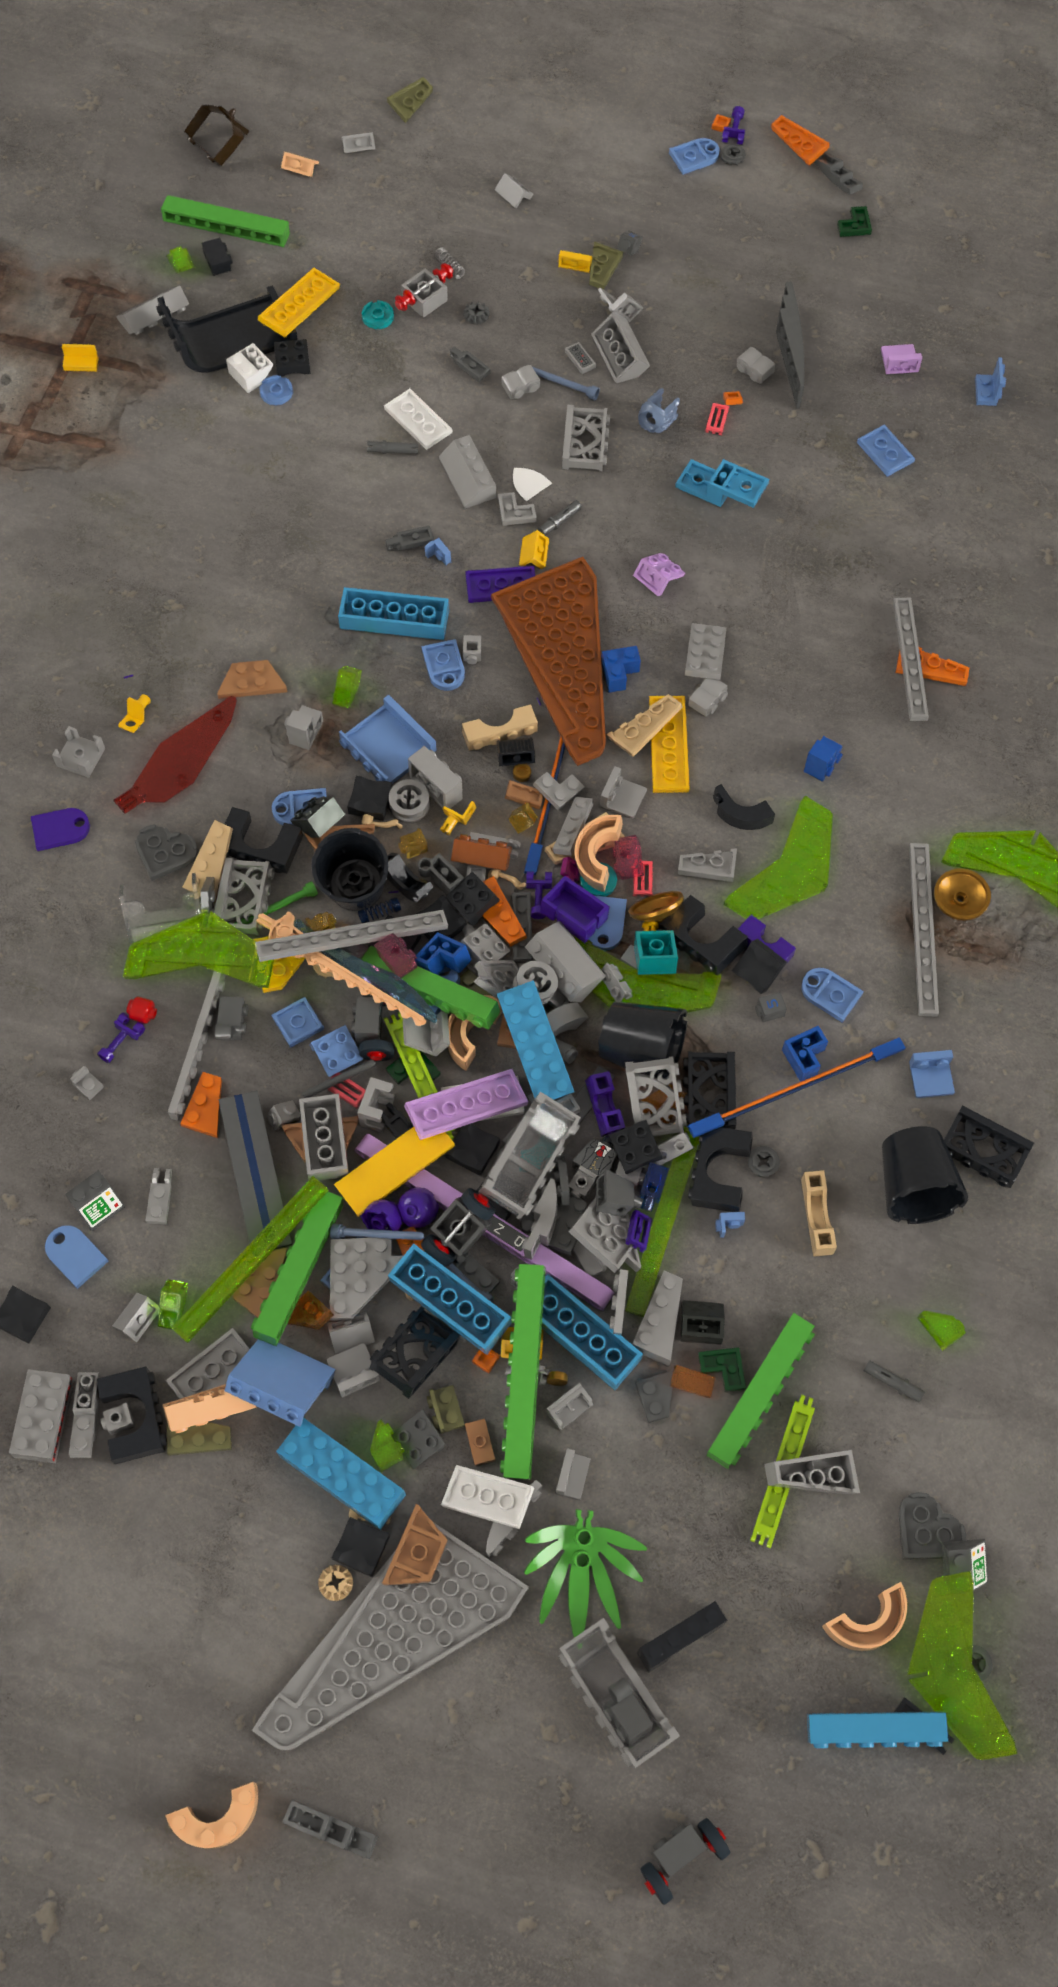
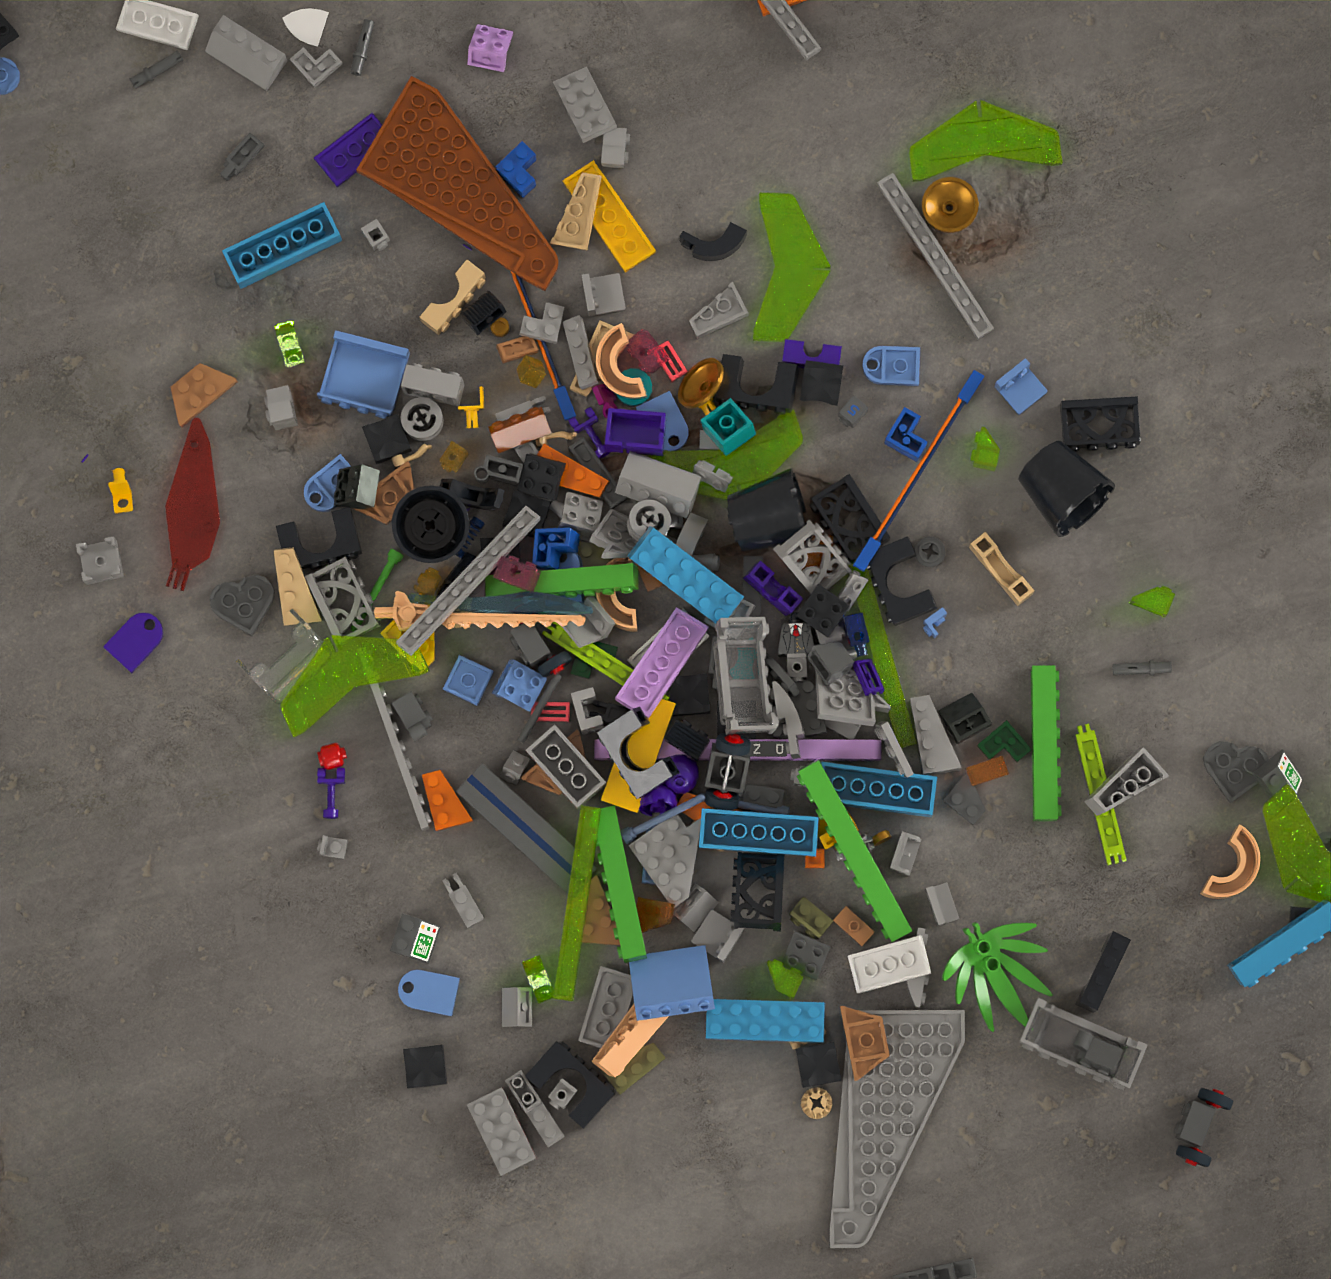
camera: 25 degrees left, 15 degrees up
(208, 895) = (317, 622): dark grey wing -> none
(382, 1137) = (616, 739): none -> arch
(439, 549) = (278, 152): medium blue bracket -> none
(442, 663) = (358, 264): medium blue tile -> none
(443, 1181) = (687, 740): none -> black brick
(534, 549) = (361, 96): yellow panel -> none
(822, 758) = (754, 149): blue brick -> none
(867, 1109) = (987, 451): none -> clear neon green slope

